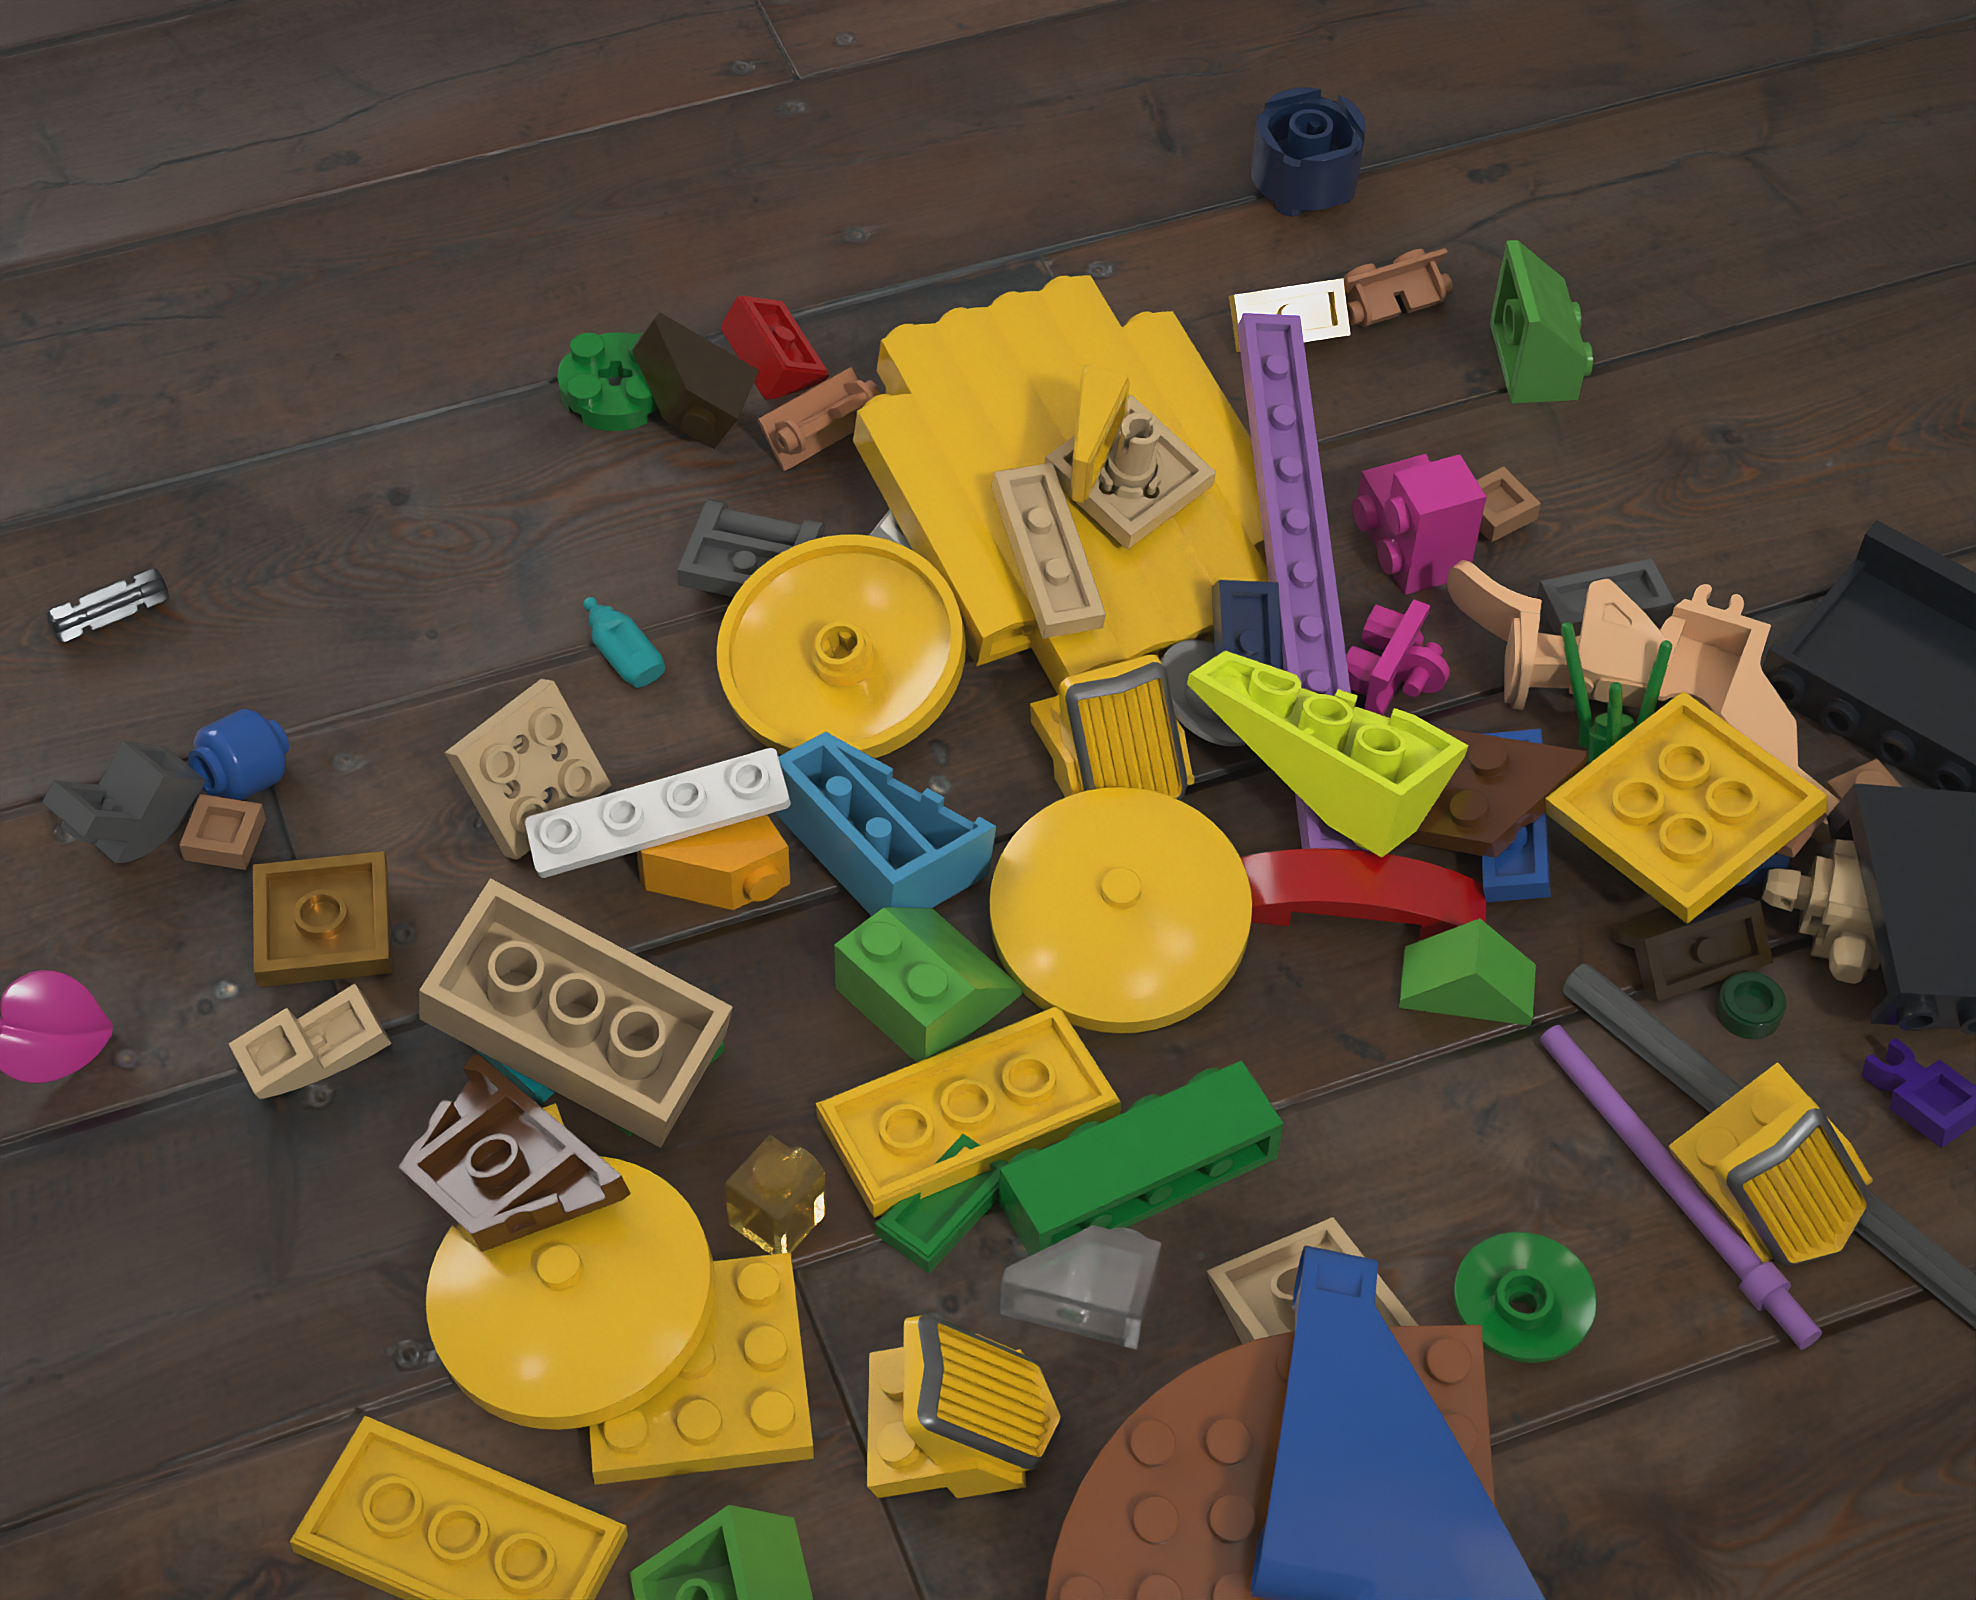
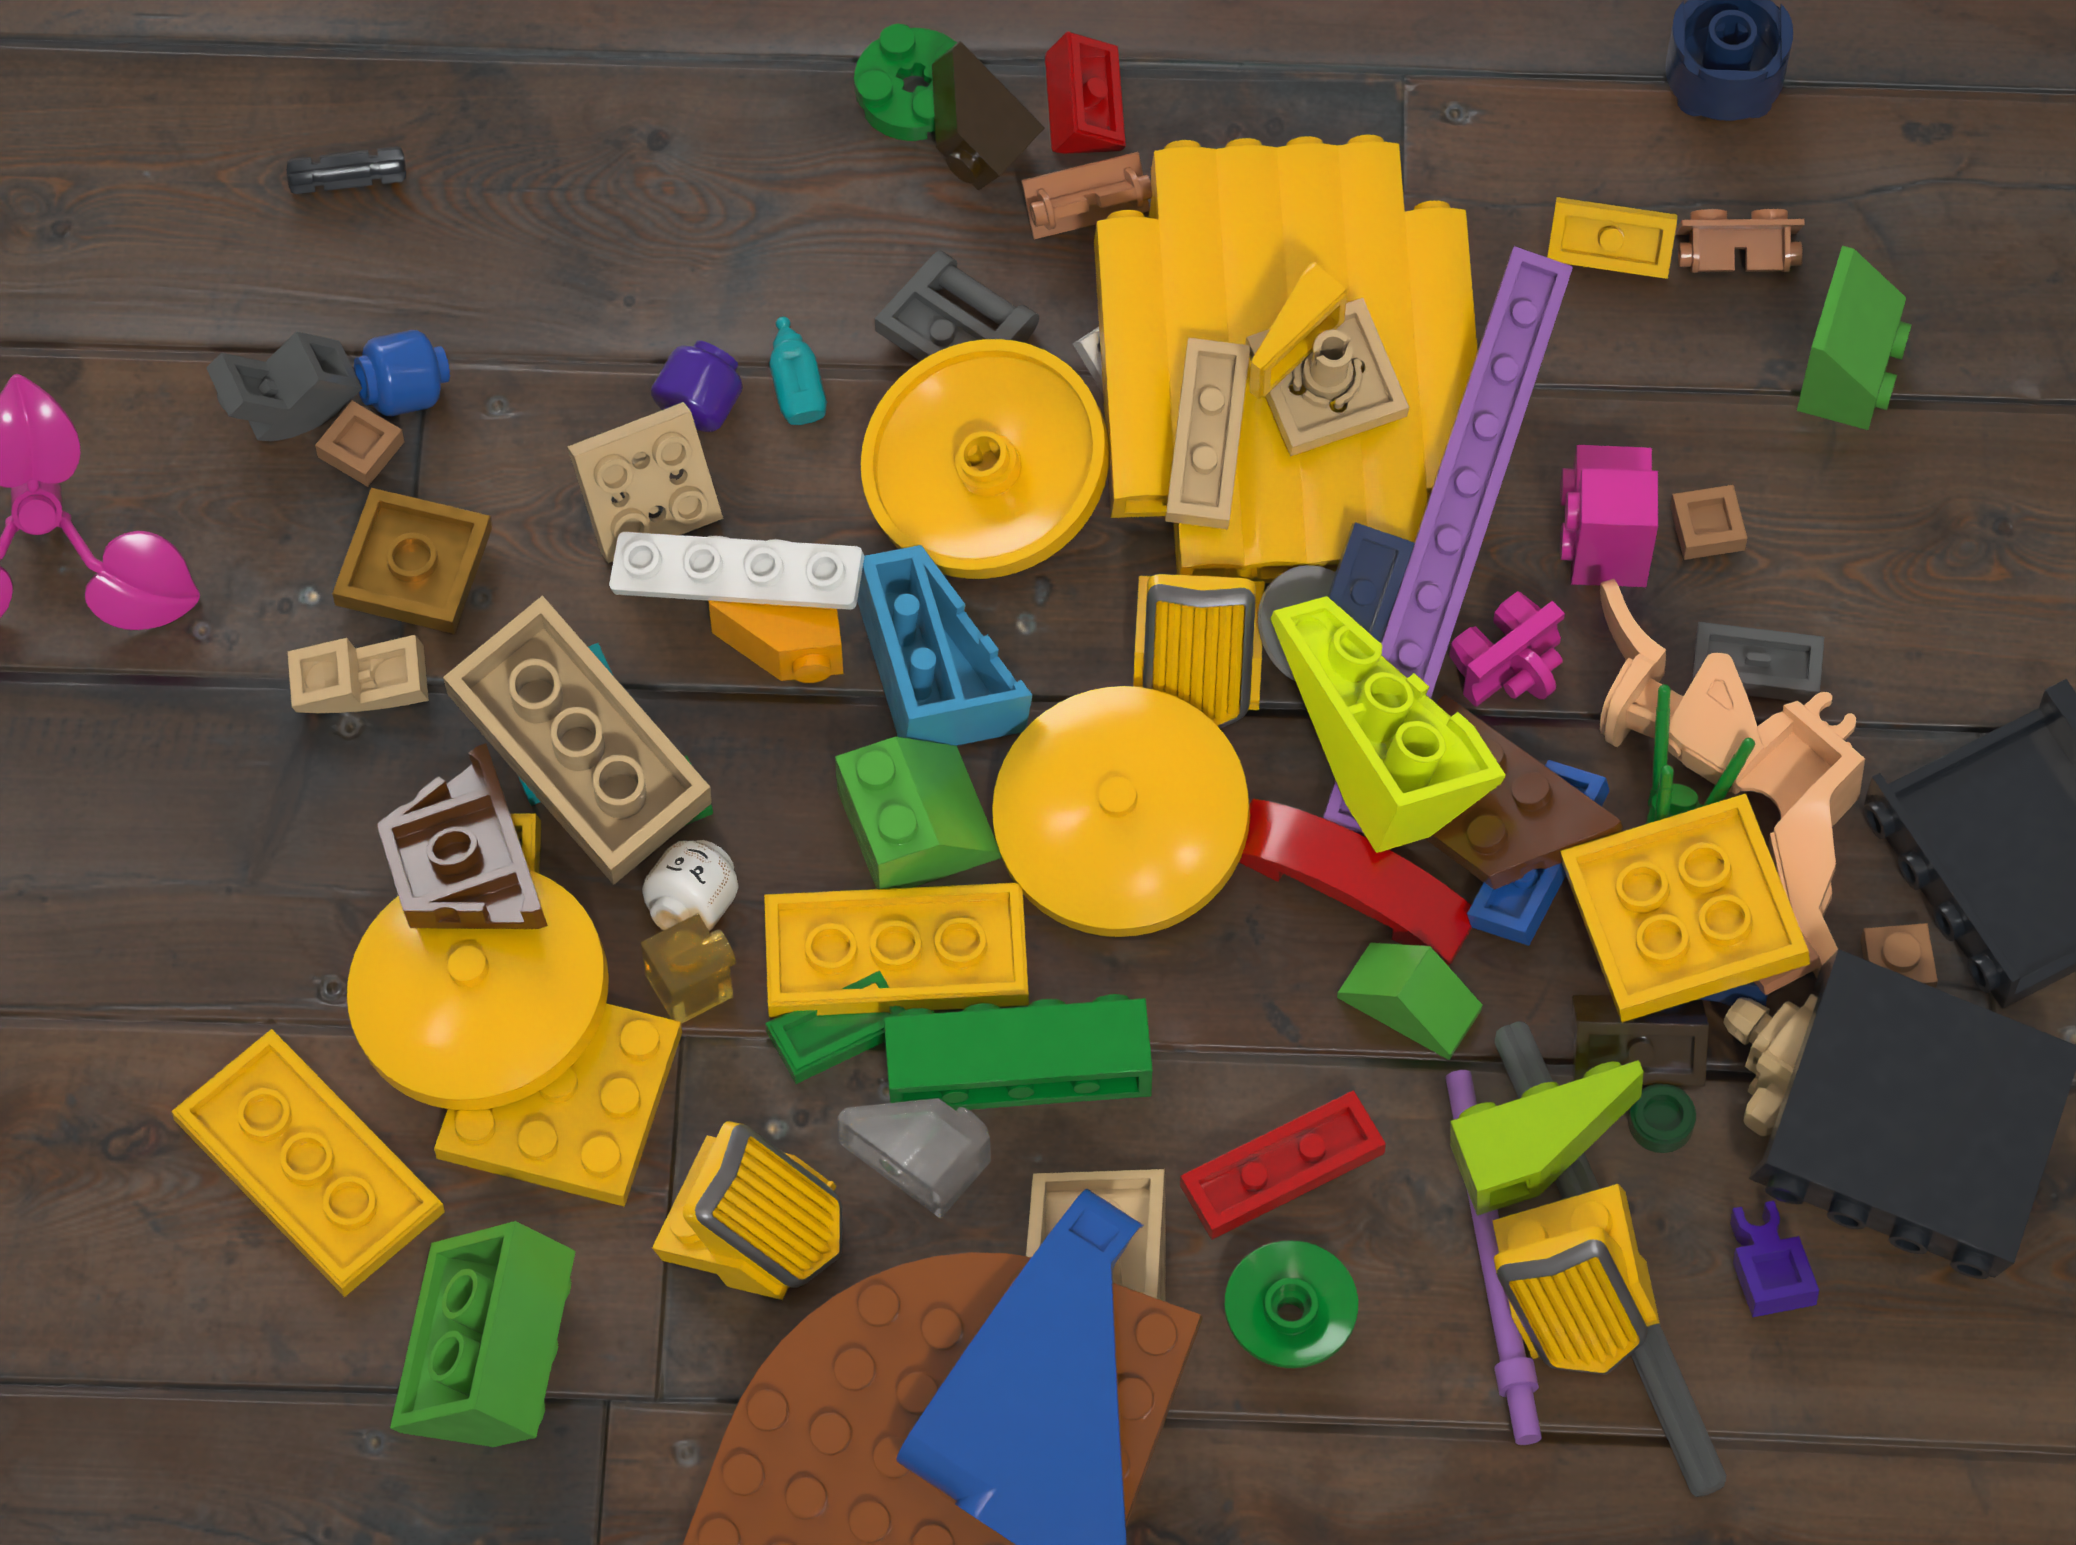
camera: 25 degrees right, 10 degrees up
(533, 658) = (703, 380): none -> dark purple head
(738, 1115) = (690, 881): none -> white head
(1440, 1172) = (1282, 1164): none -> red plate
(1657, 1068) = (1528, 1143): none -> lime slope

